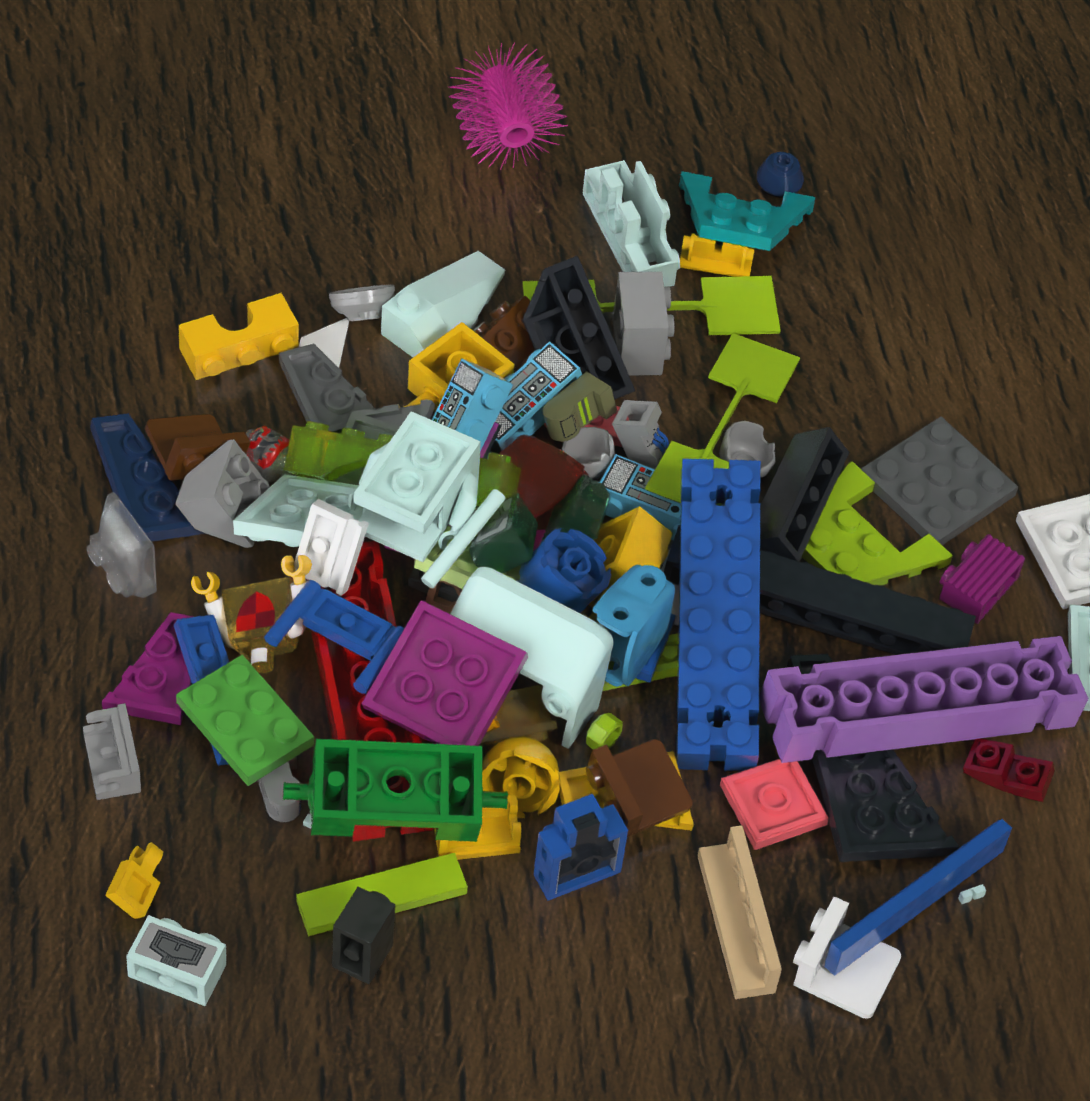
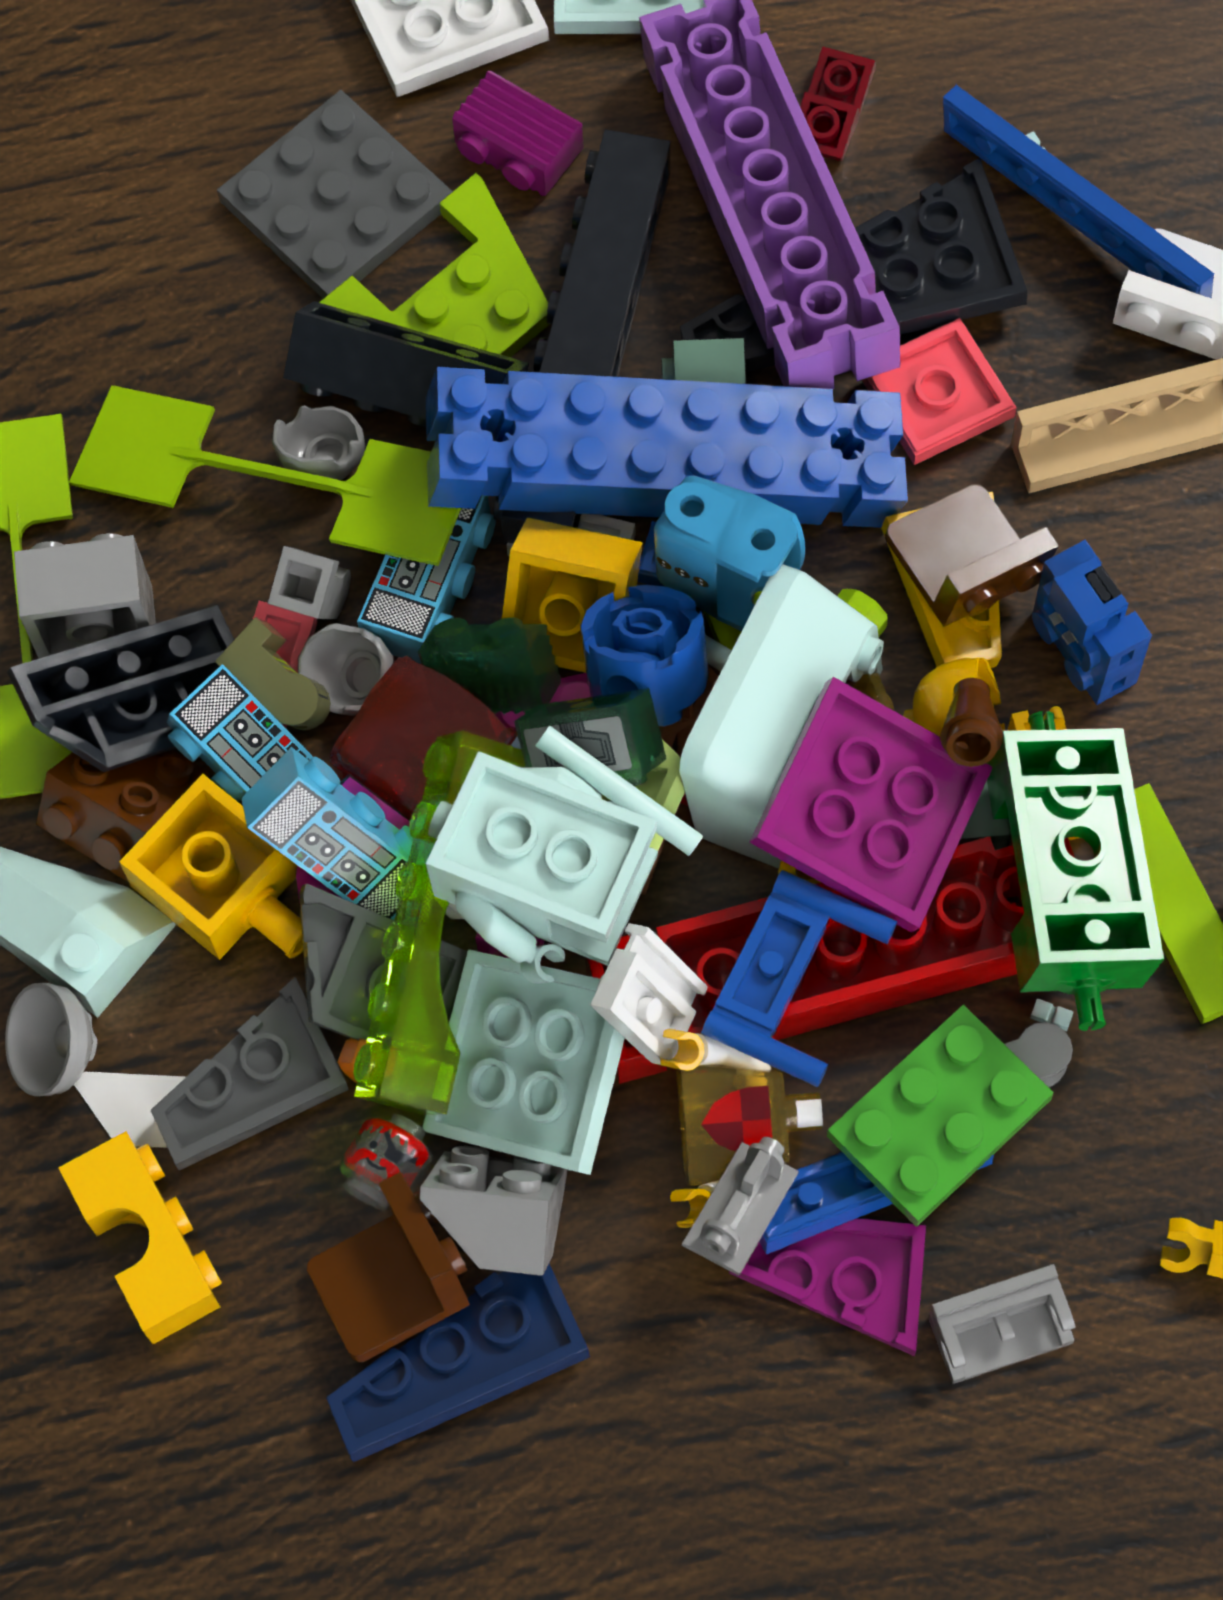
camera: 85 degrees left, 15 degrees up
(123, 551) = (629, 1357): clear slope -> none
(198, 602) = (742, 1205): none -> light grey hinge
(493, 735) = (971, 725): none -> reddish brown cone
(781, 646) = (706, 361): none -> sand green brick

